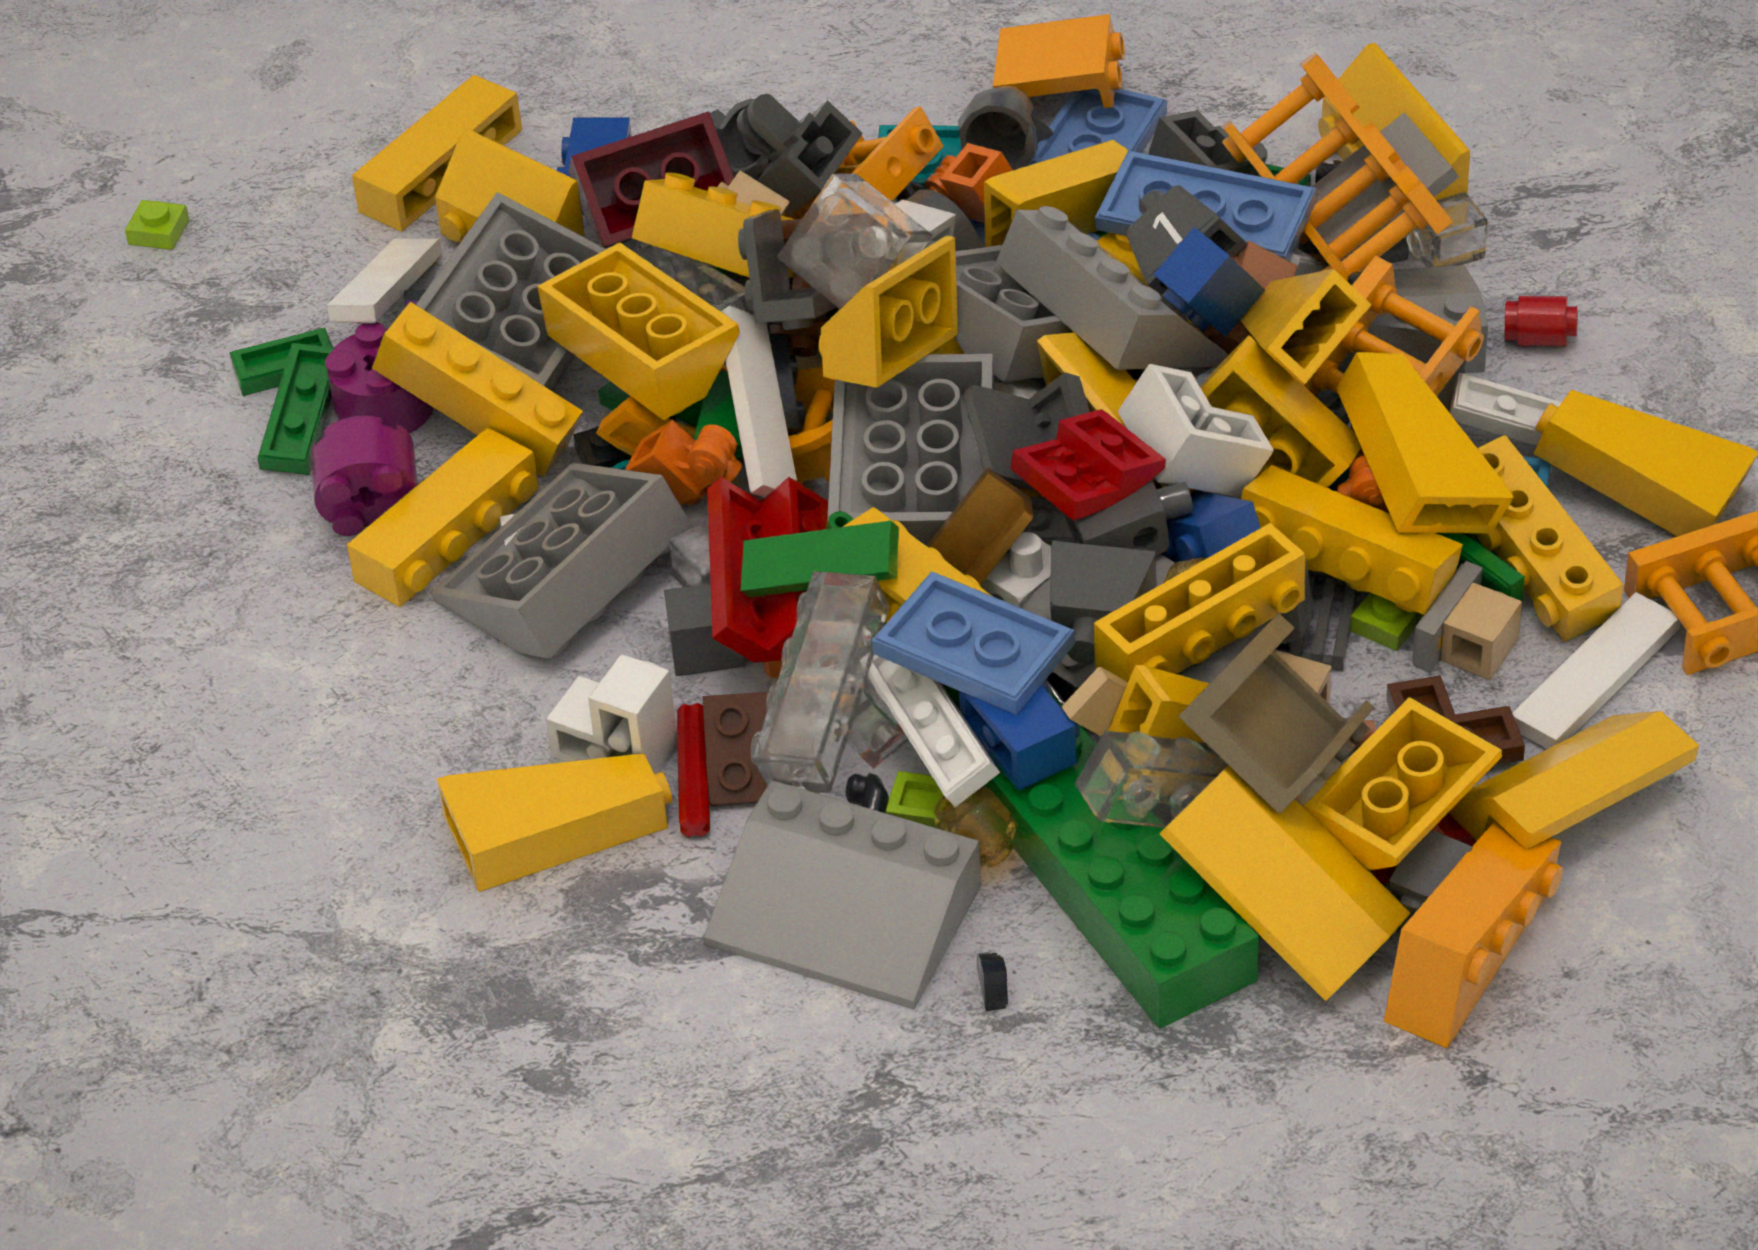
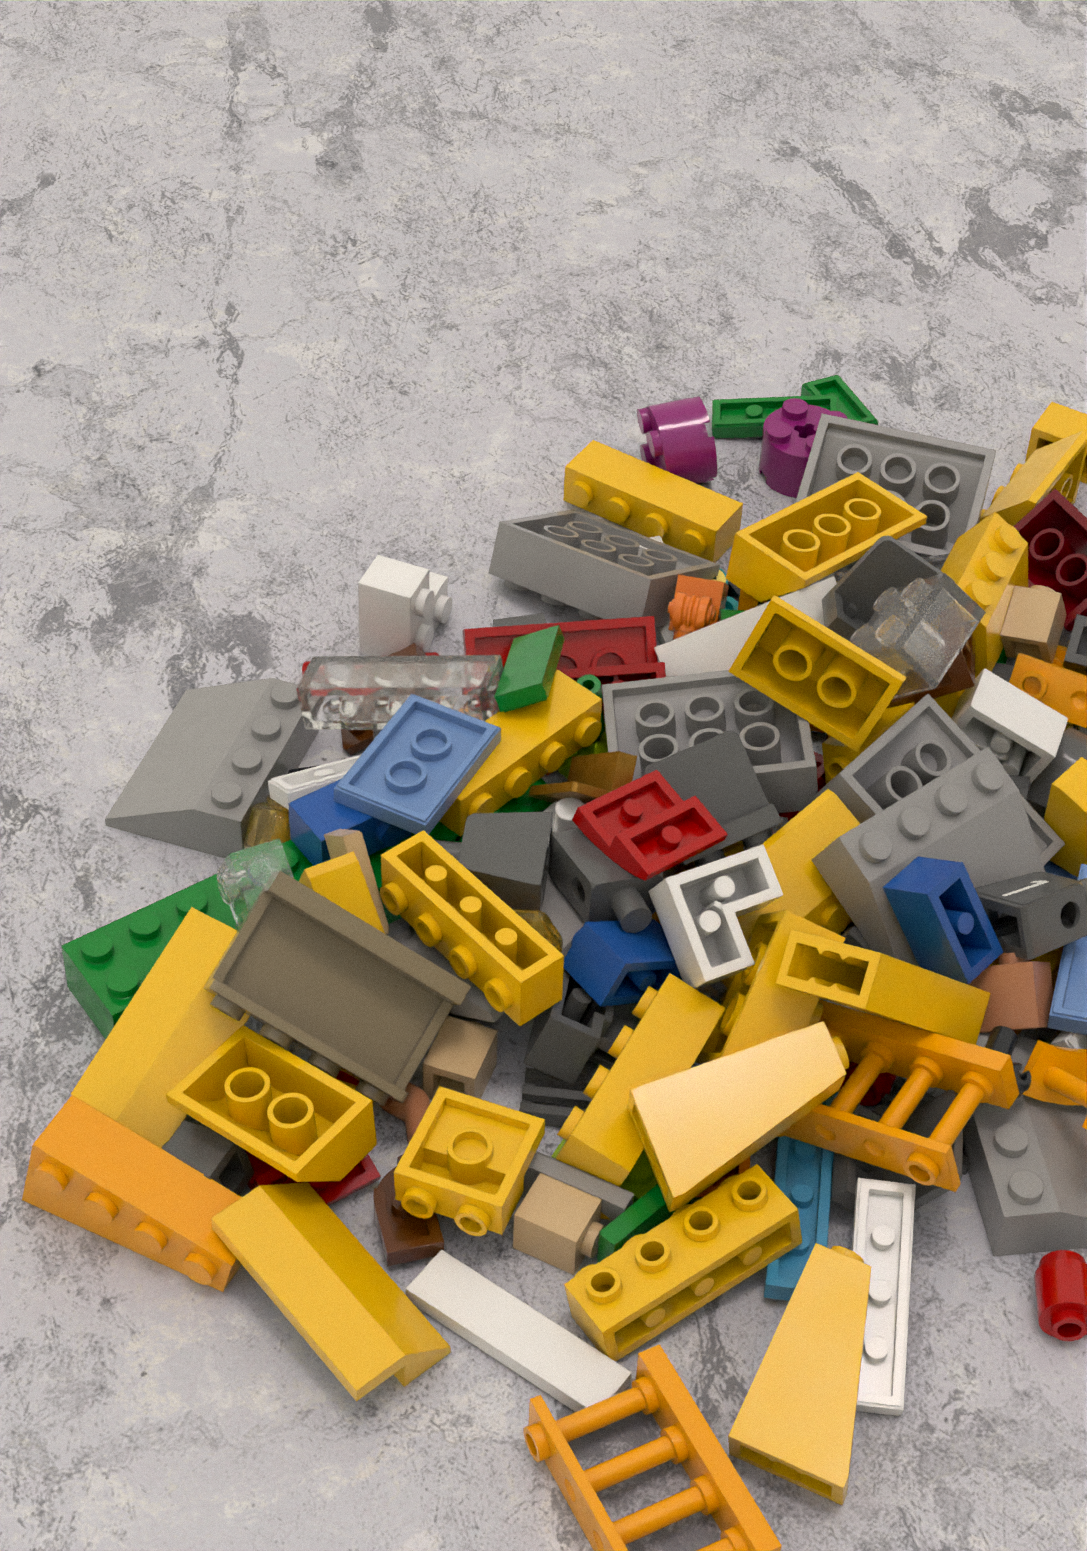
camera: 80 degrees right, 0 degrees up
(157, 224) = (992, 325): lime plate -> none
(383, 281) = (873, 409): white tile -> none
(474, 385) = (776, 464): yellow brick -> none
(550, 813) = (308, 582): yellow slope -> none
(992, 980) = (121, 859): black tile -> none
(1444, 660) = (467, 1162): none -> yellow plate

